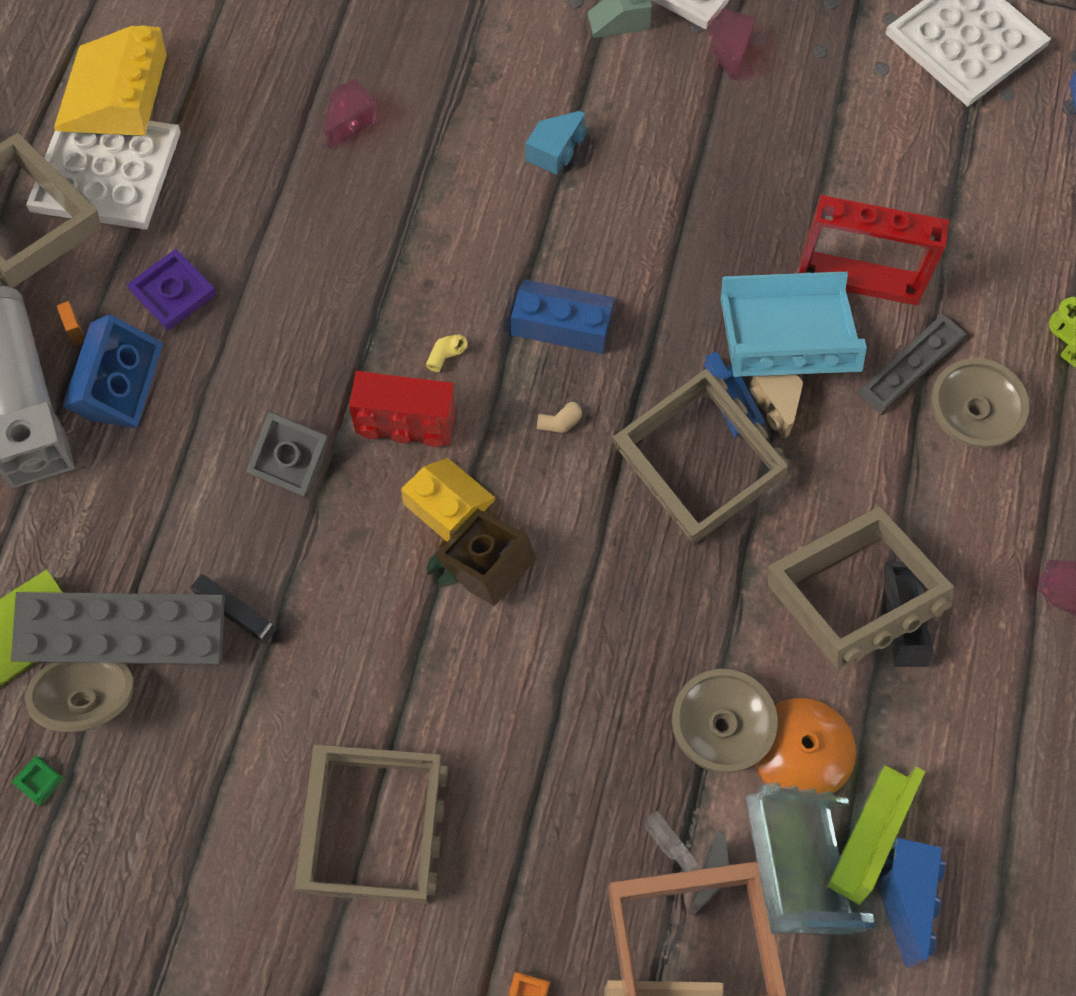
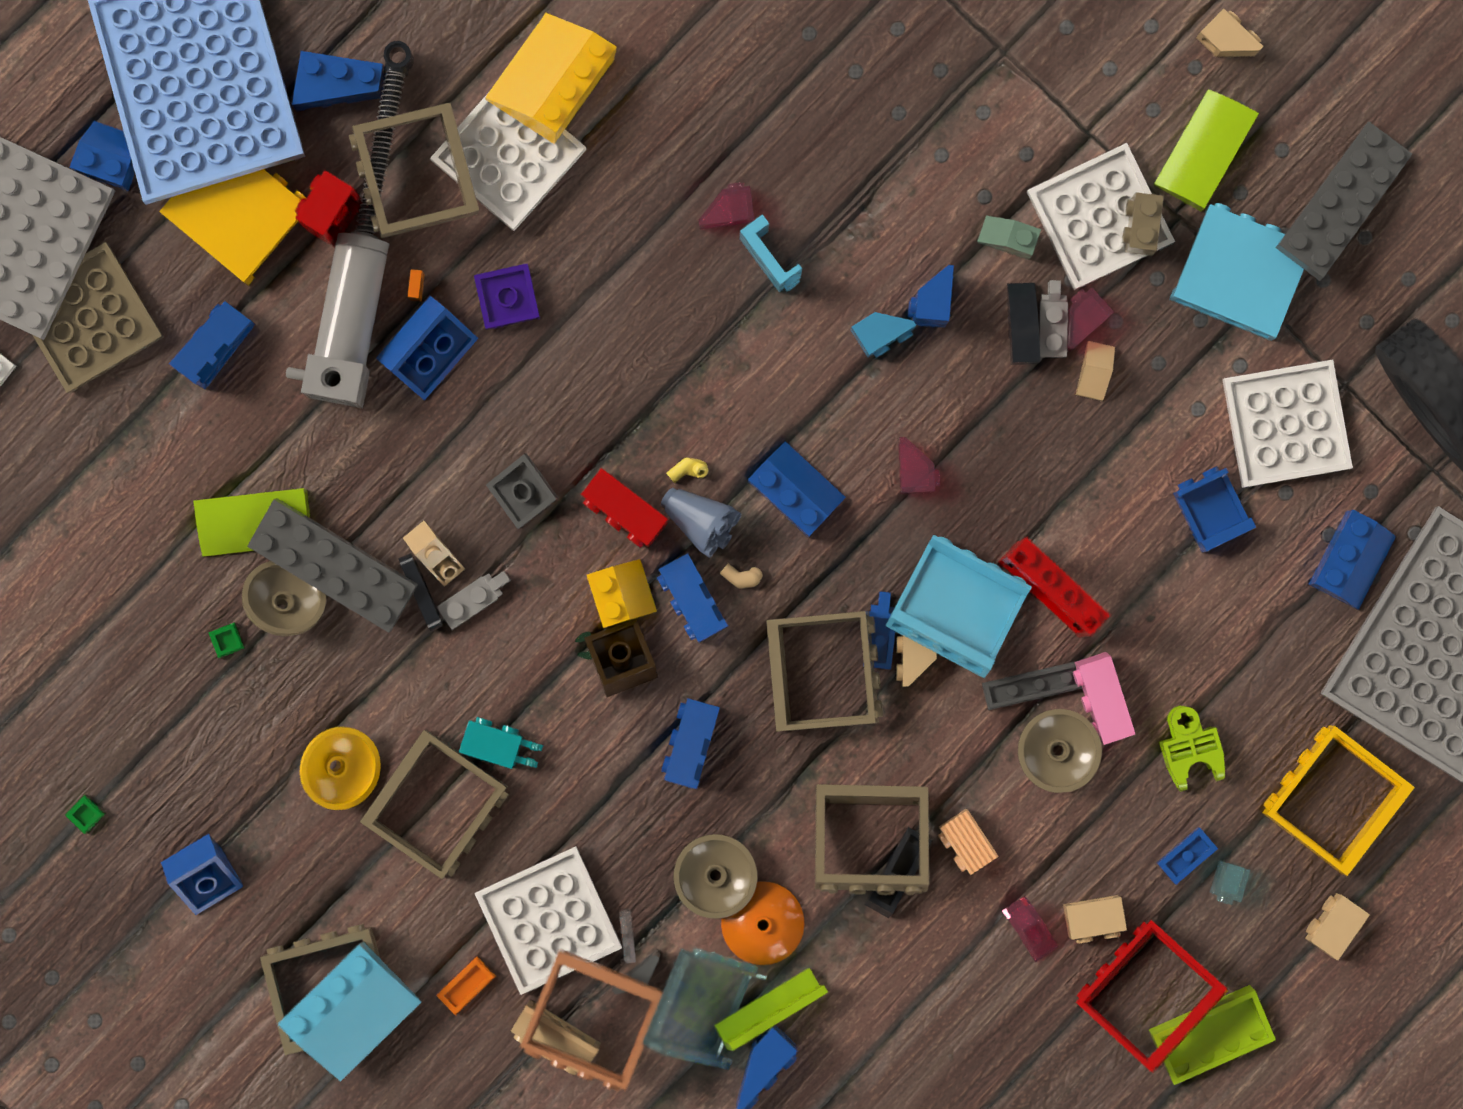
camera: 30 degrees right, 20 degrees up
(226, 562) = (433, 553): none -> tan slope
(256, 831) = (352, 777): none -> yellow dish
(294, 588) = (472, 599): none -> light grey hinge
(405, 719) = (496, 744): none -> teal hinge
(409, 127) = (750, 237): none -> medium azure panel
(489, 381) = (701, 519): none -> sand blue cone
(526, 461) = (691, 598): none -> blue wedge
(558, 876) = (547, 911): none -> white plate
(589, 84) = (933, 300): none -> blue slope
(611, 602) = (690, 743): none -> blue wedge
(665, 236) = (915, 470): none -> clear pink slope
(682, 74) = (1023, 324): none -> black slope
(705, 62) = (1053, 322): none -> light grey hinge
(772, 81) = (1096, 371): none -> tan slope
(954, 542) = (967, 841): none -> light nougat brick
(956, 134) = (1212, 509): none -> blue panel
(984, 332) = (1103, 697): none -> bright pink brick

